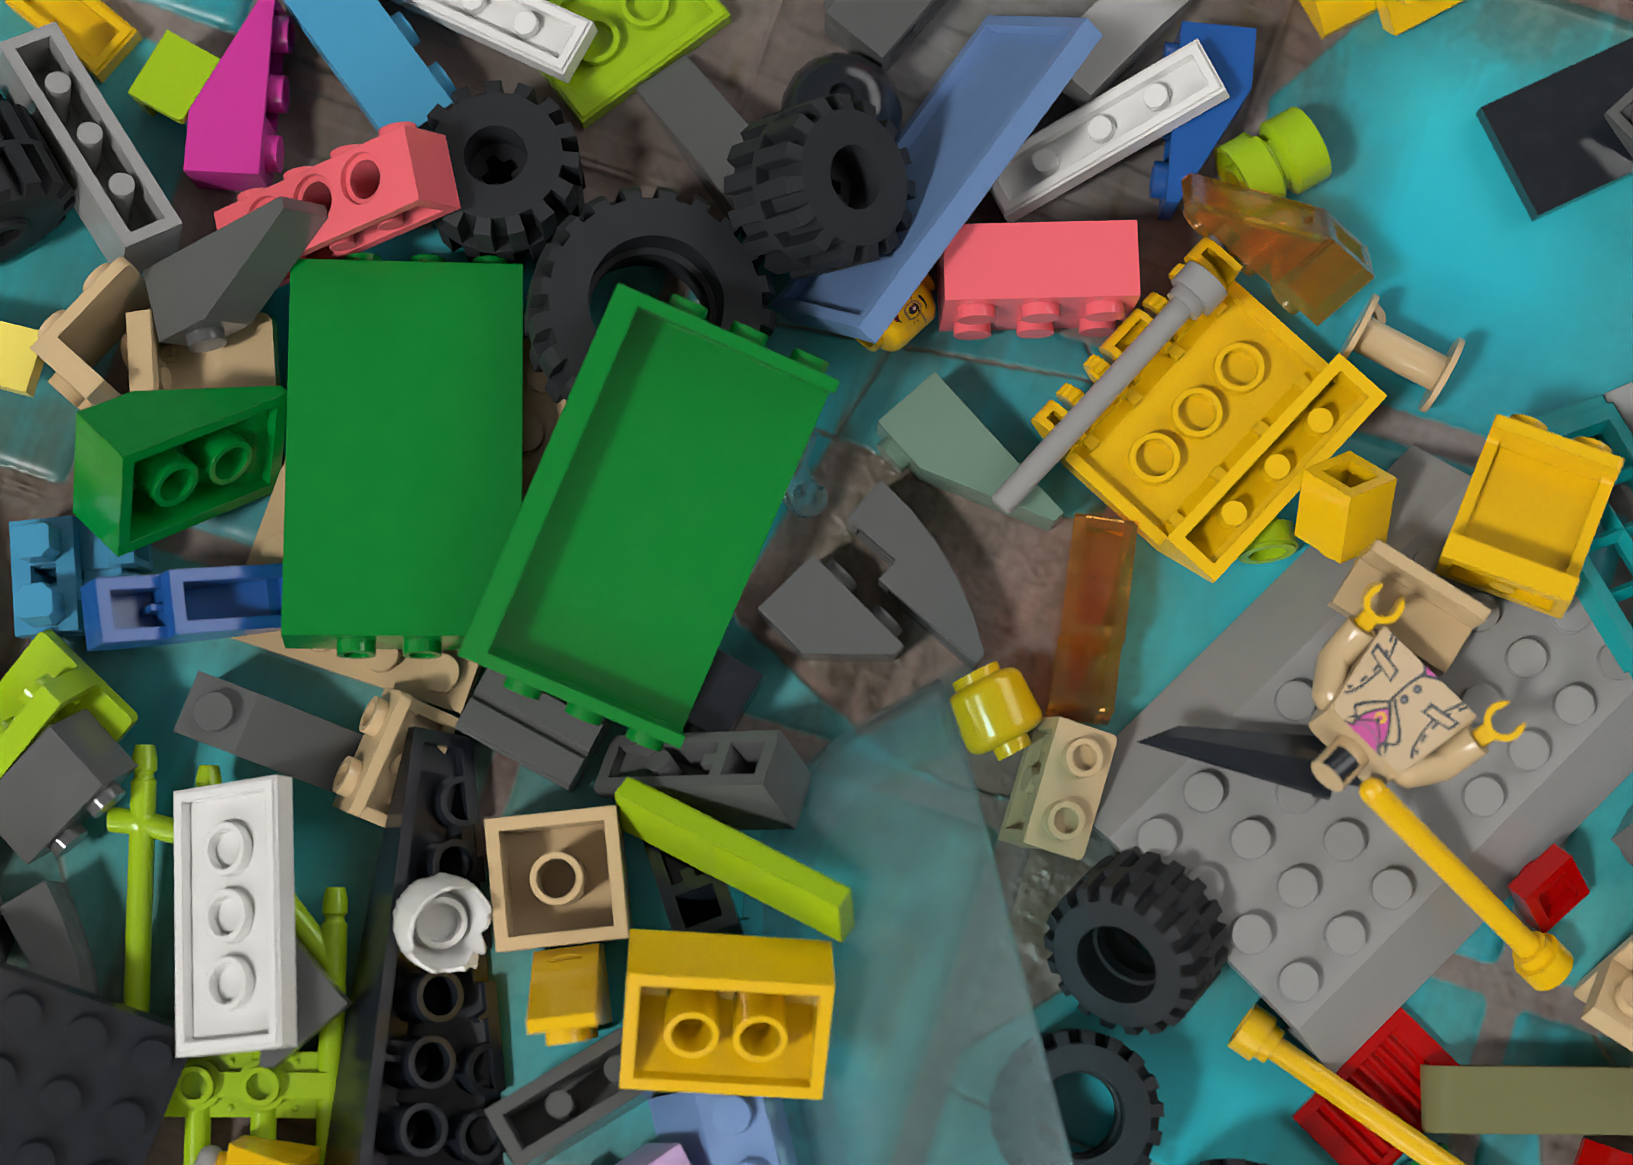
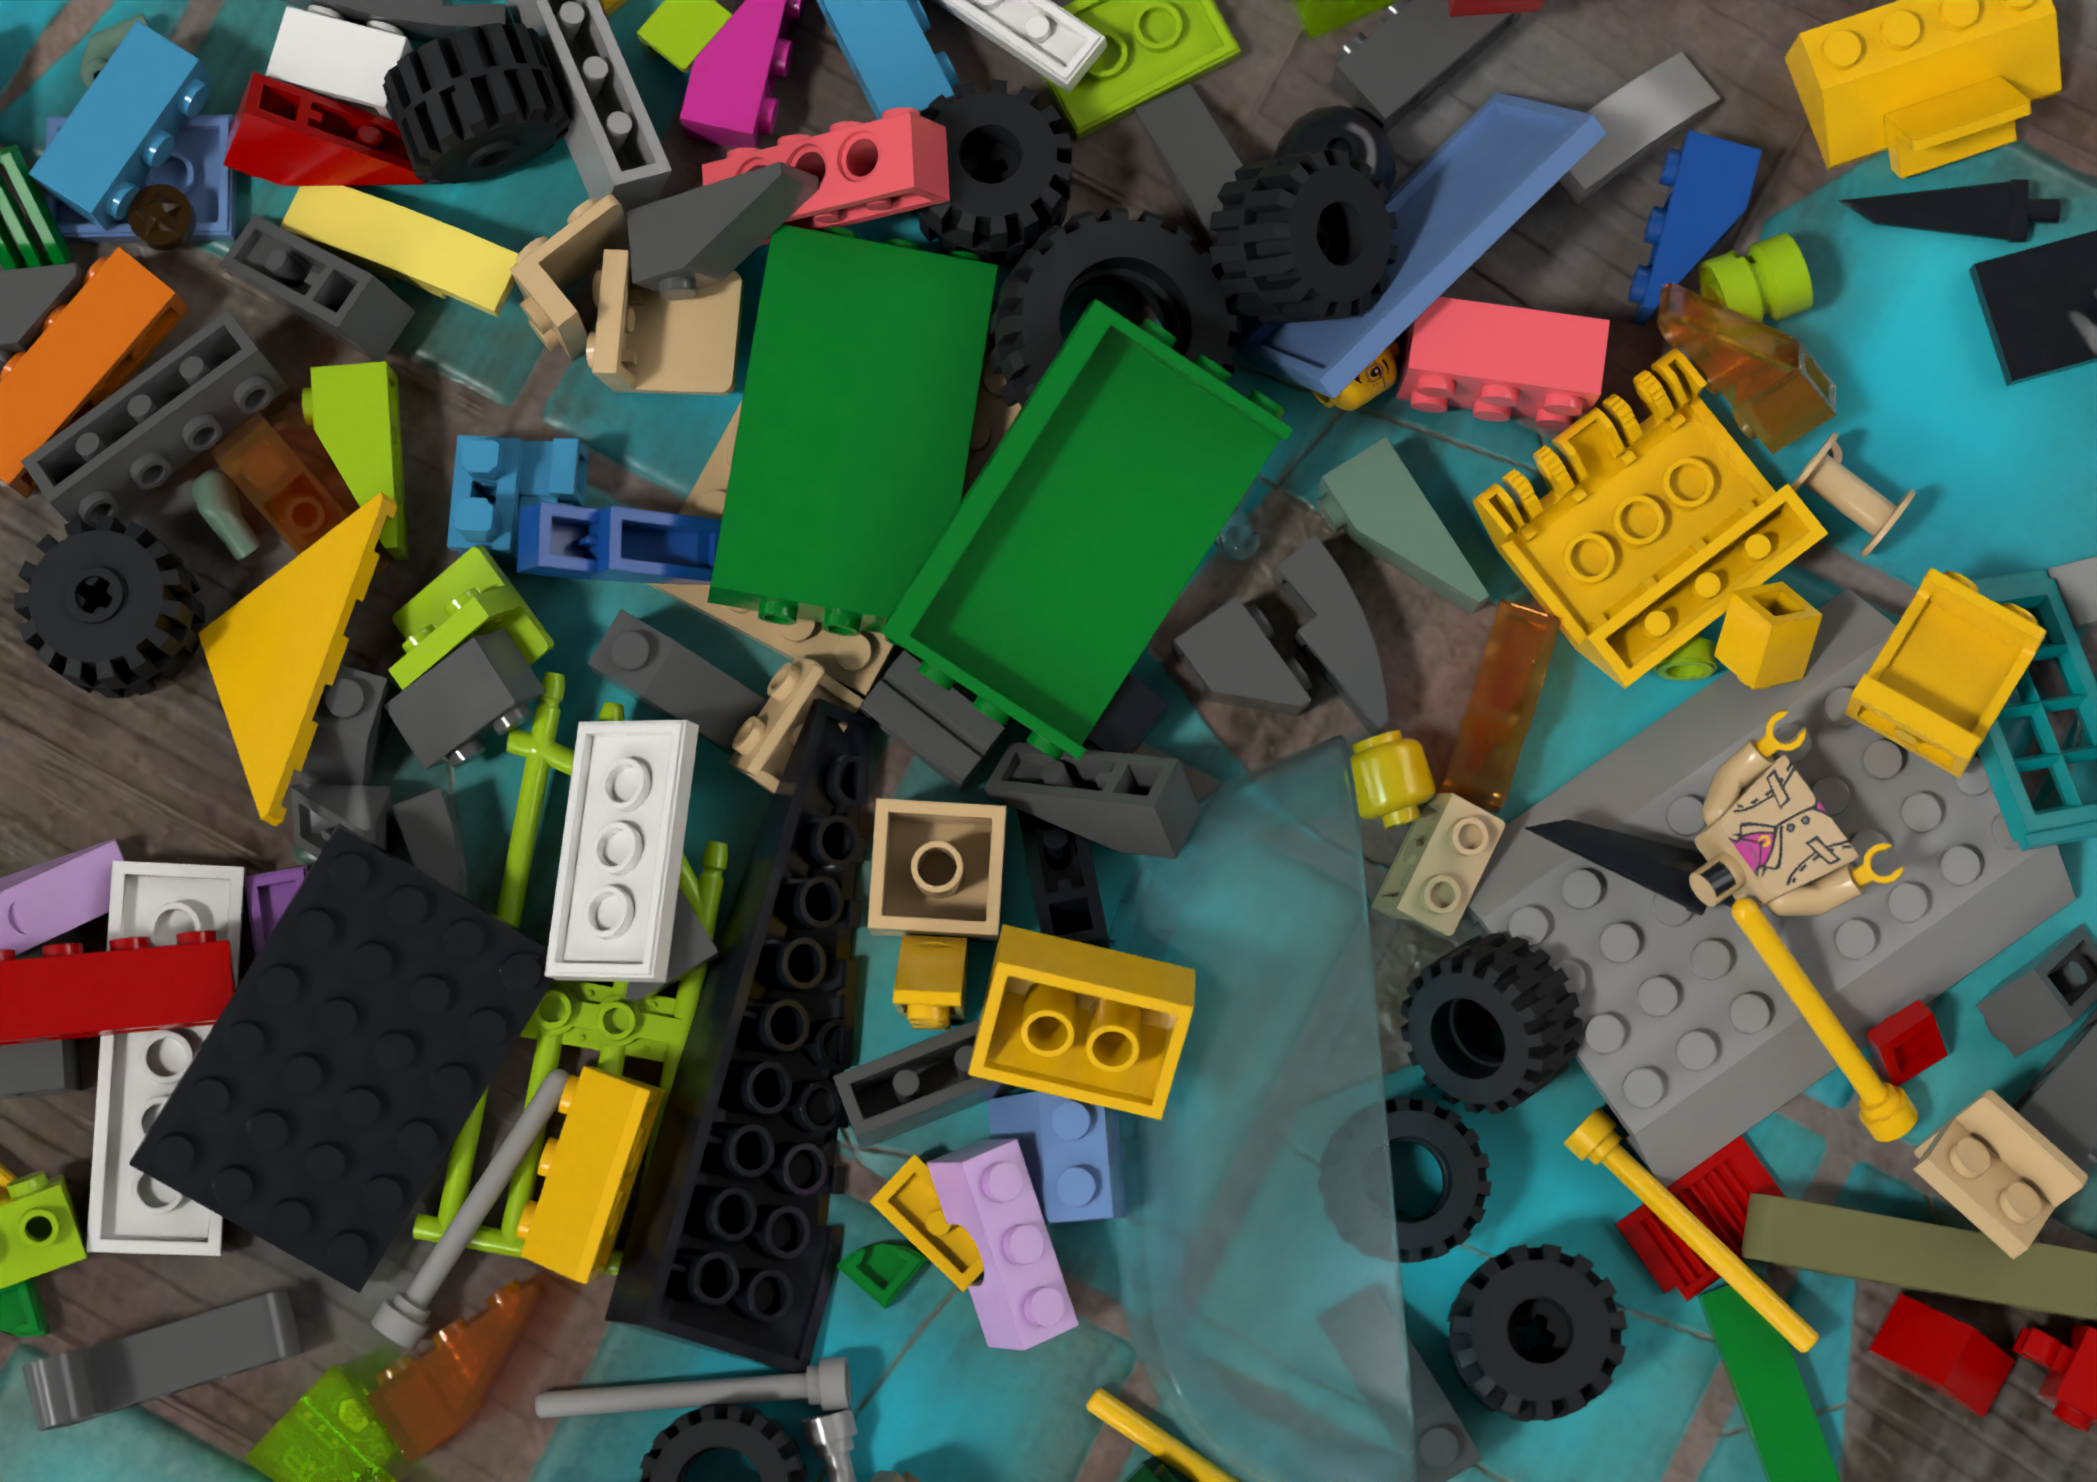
camera: 10 degrees right, 0 degrees up
(174, 459) = (631, 400): green slope -> none
(442, 923) = (820, 890): white hair -> none
(736, 859) = (1114, 876): lime tile -> none
(1108, 130) = (1597, 226): white tile -> none
(1192, 294) = (1652, 403): light grey piece -> none
(1435, 612) = (1835, 750): tan panel -> none
(1478, 54) = (1980, 210): none -> black bar

